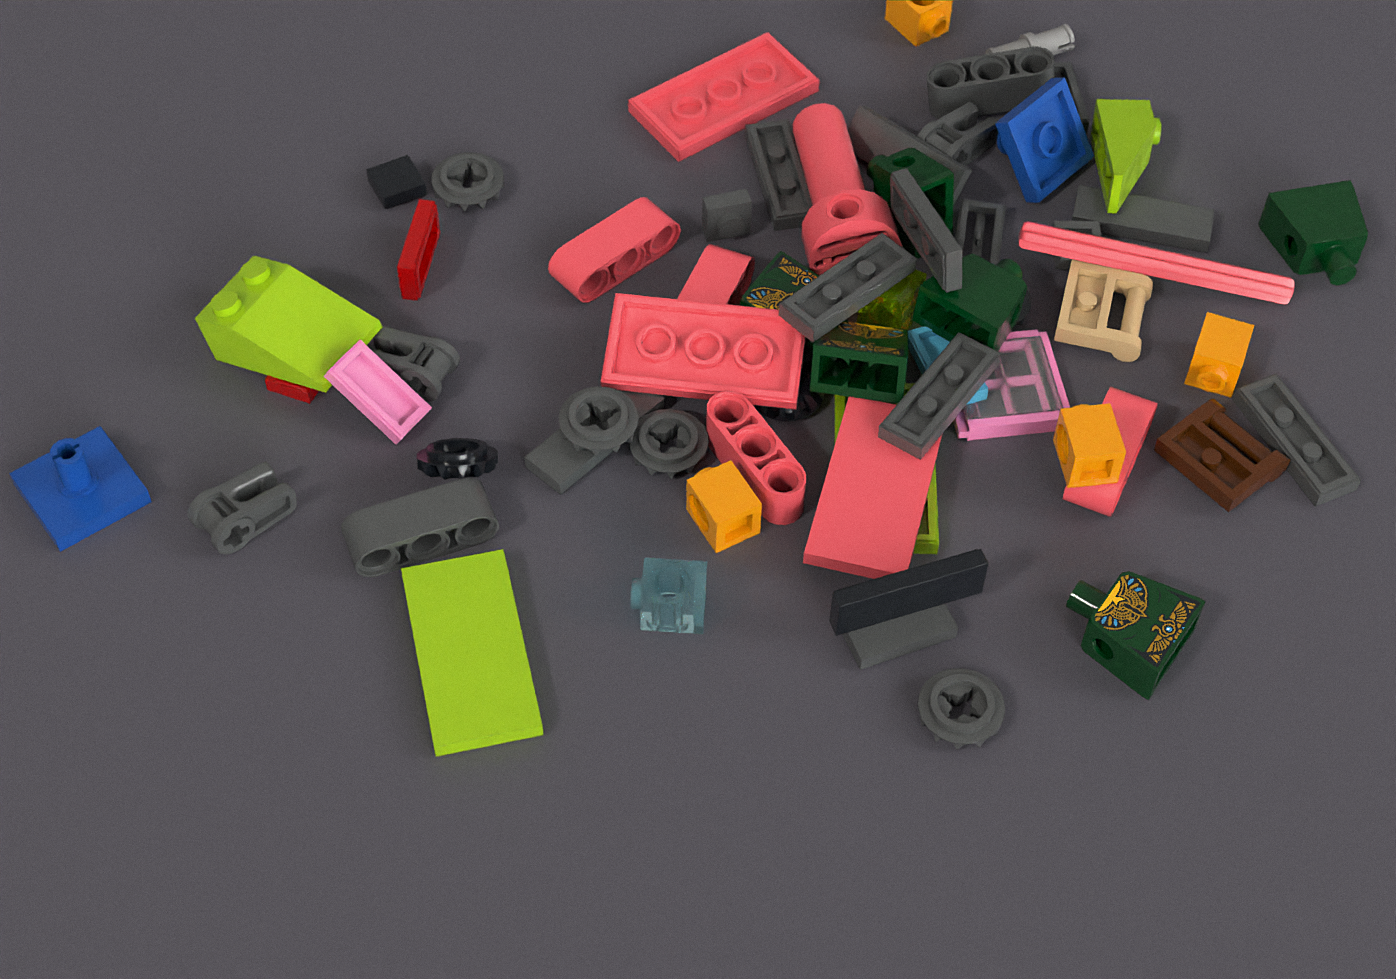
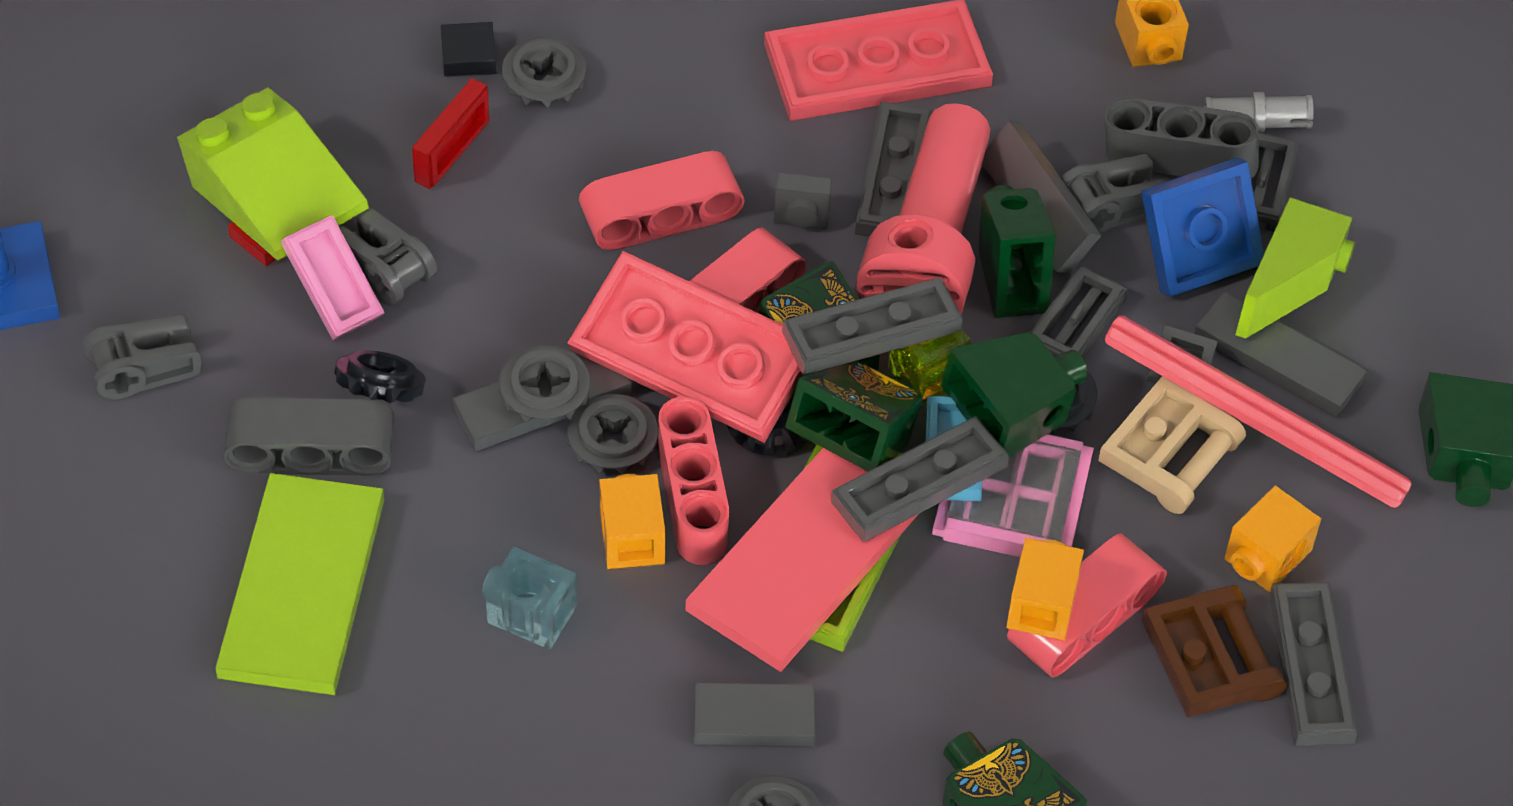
camera: 20 degrees right, 0 degrees up
(908, 591) = (772, 678): black tile -> none
(926, 230) = (984, 290): dark grey tile -> none

